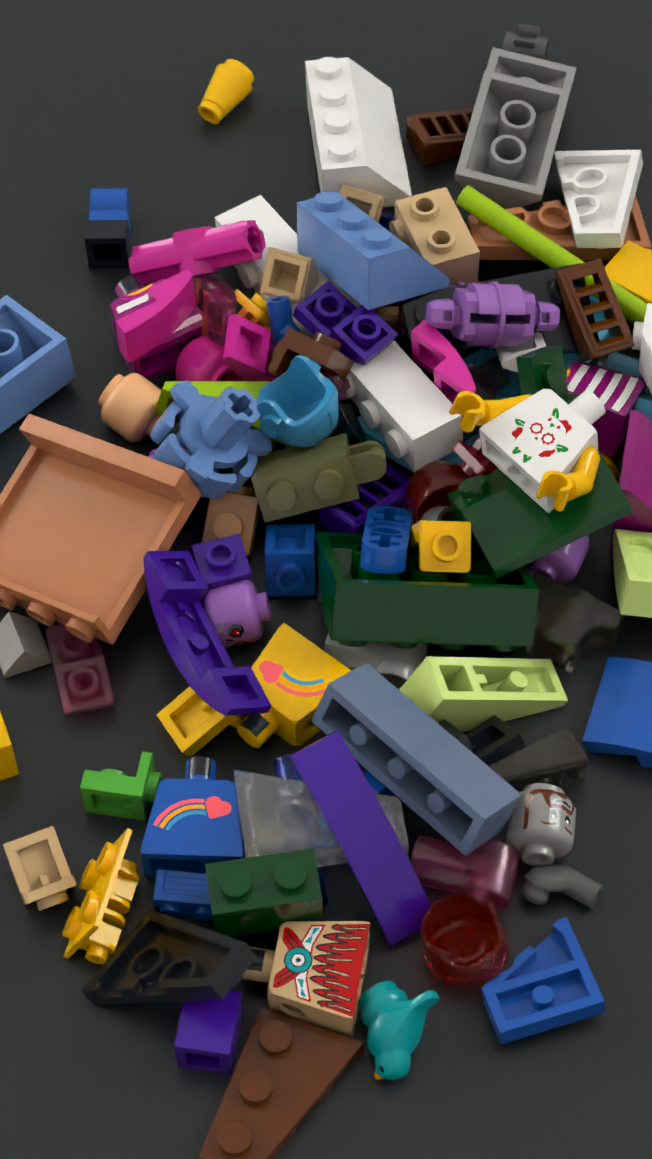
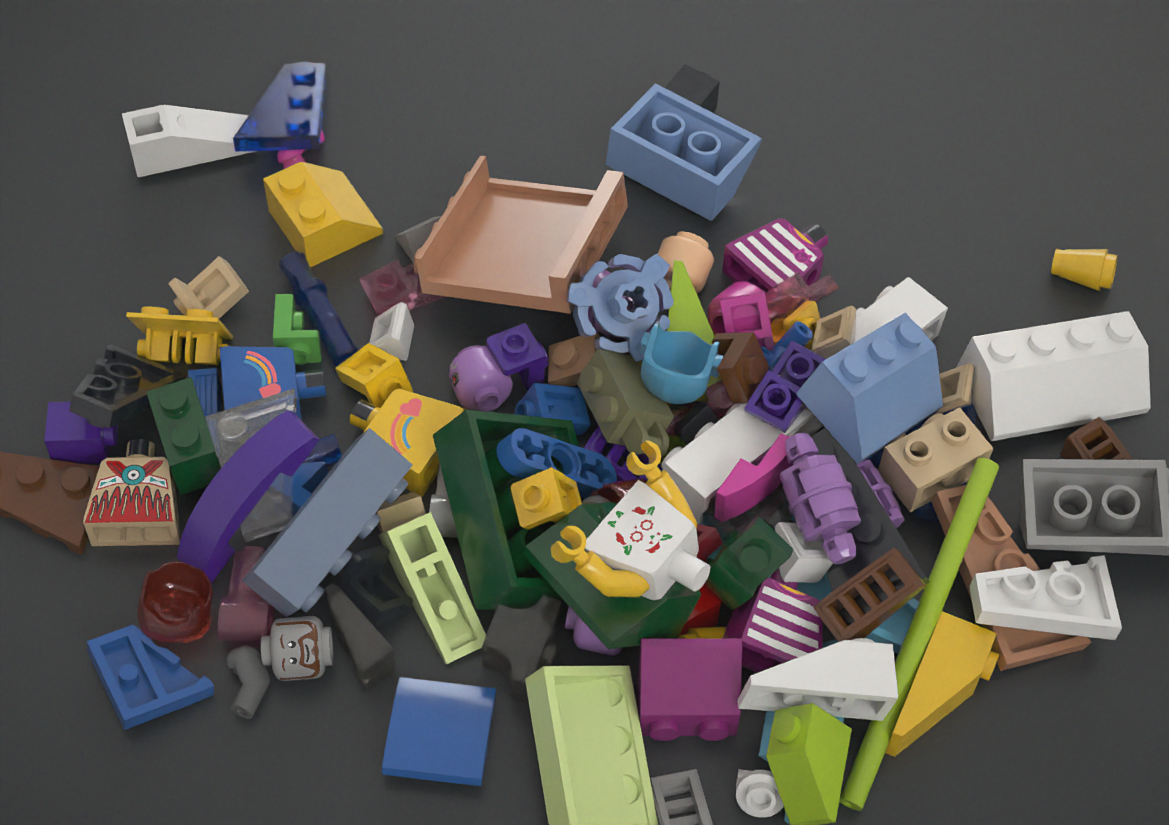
camera: 75 degrees right, 0 degrees up
(69, 765) = (312, 296): none -> clear blue pin
(108, 225) = (886, 209): leg -> none
(142, 693) = (393, 331): none -> white slope
(167, 309) = (769, 251): dark pink slope -> none
(191, 640) = (427, 344): dark purple slope -> none
(199, 250) = (858, 270): dark pink piece -> none
(393, 1026) = (91, 563): teal animal -> none

